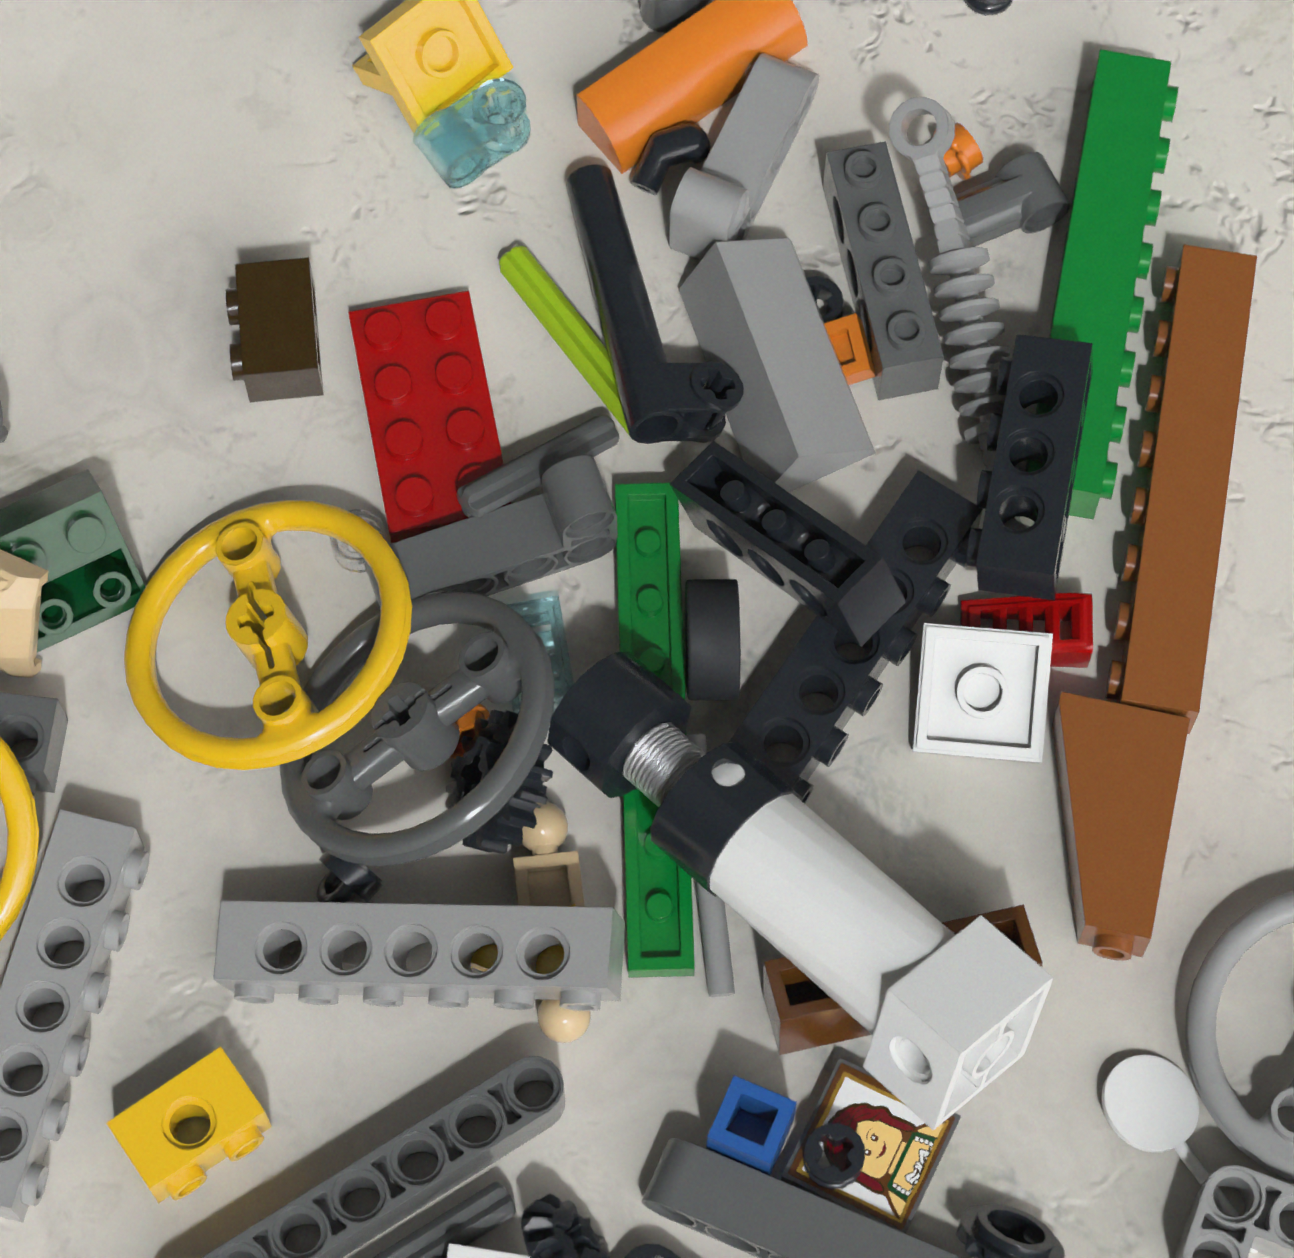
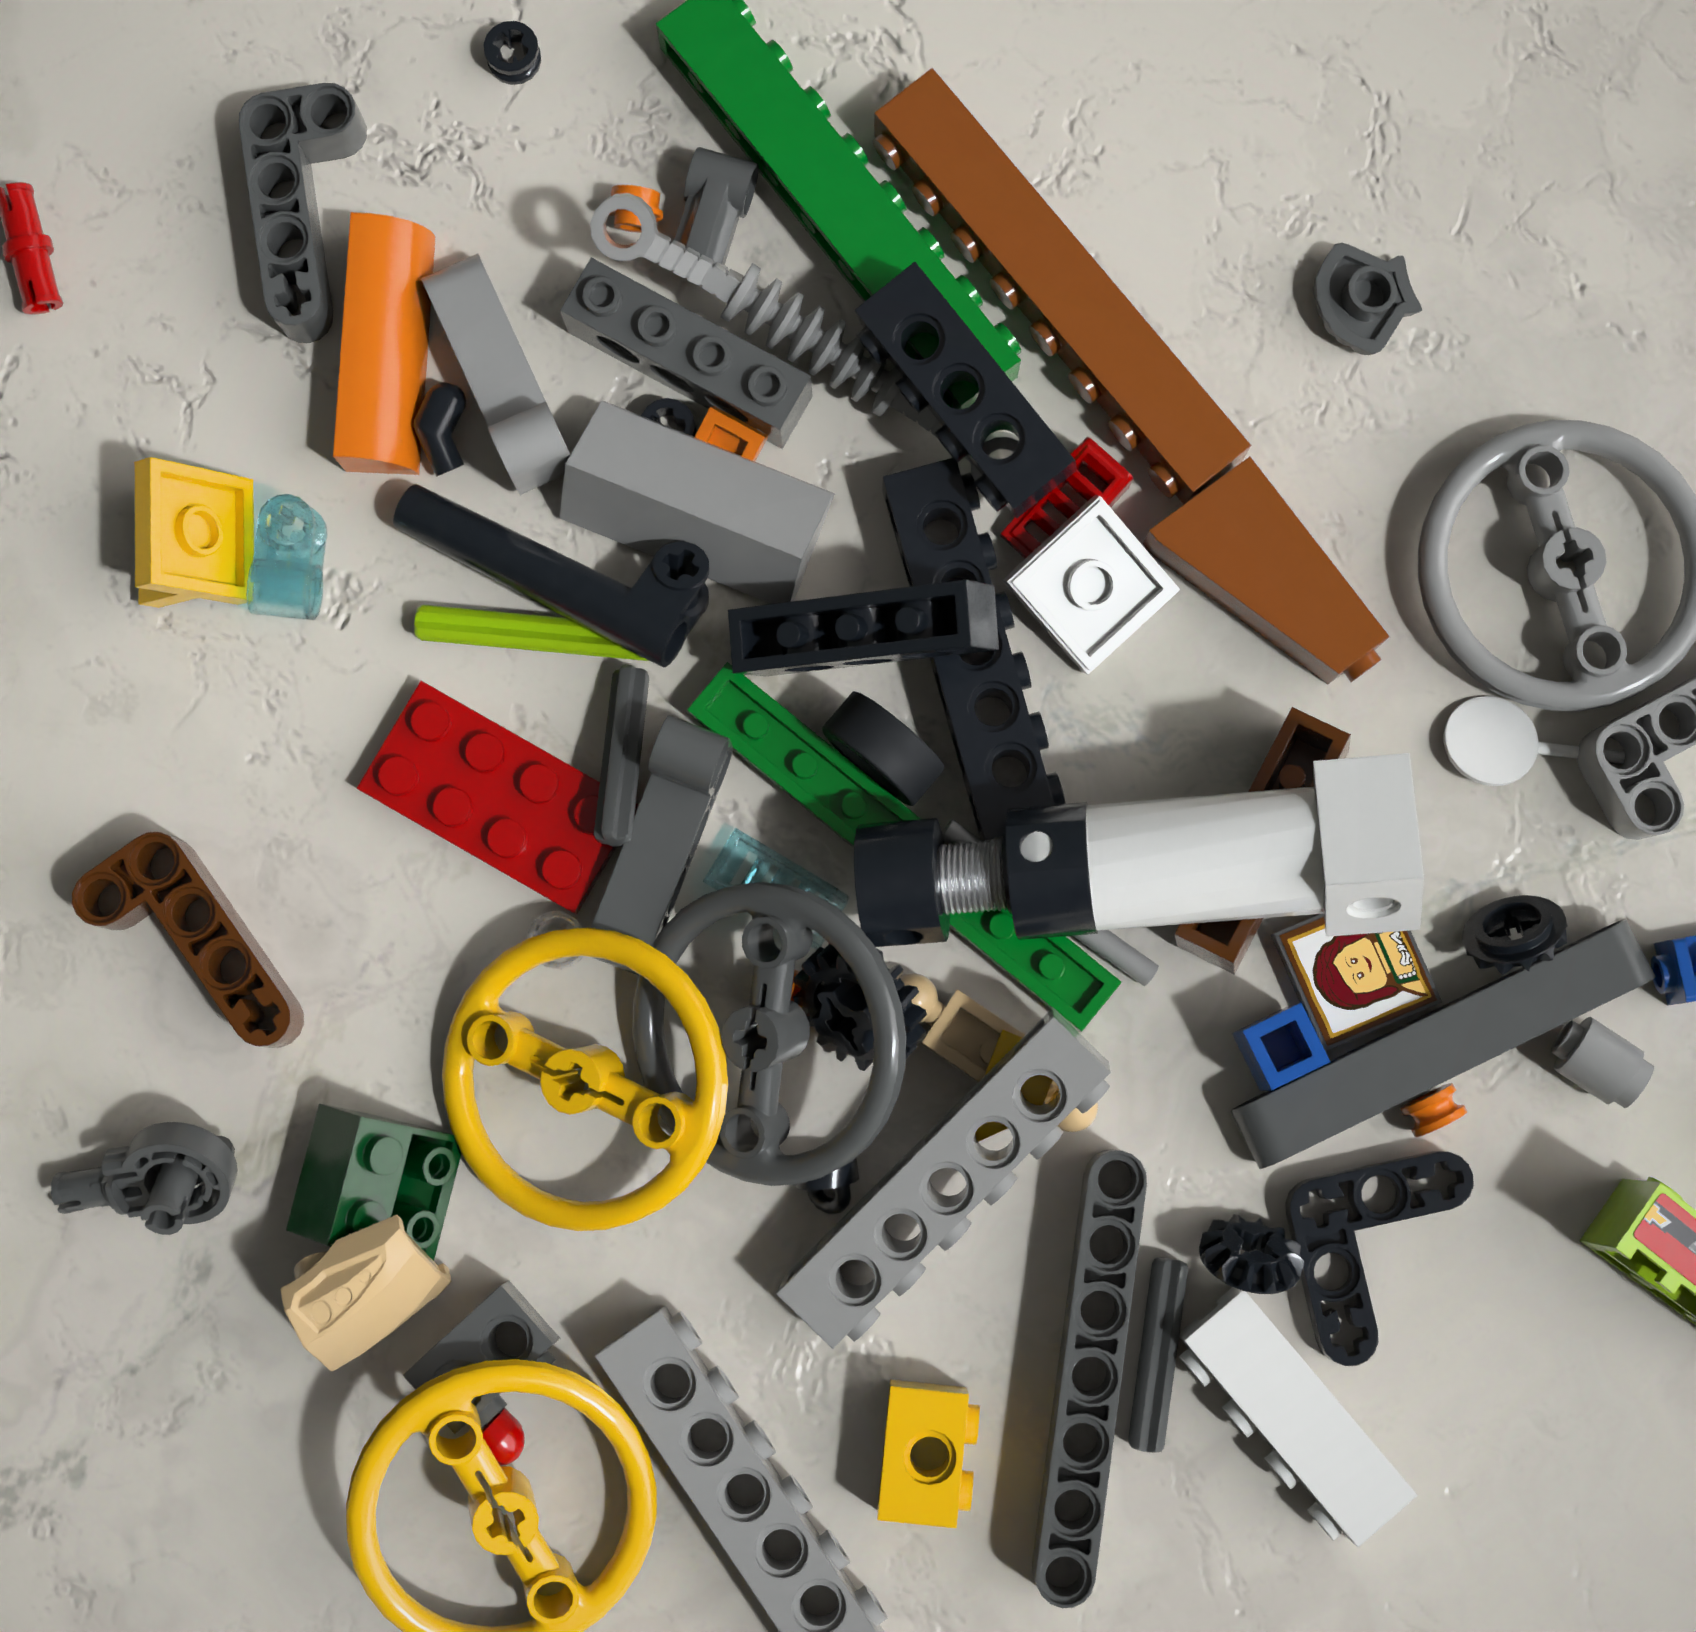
camera: 45 degrees left, 15 degrees up
(137, 304) = (202, 949): none -> reddish brown beam
(277, 330) = (327, 858): dark brown brick -> none
(831, 1176) = (1363, 990): black bush -> none

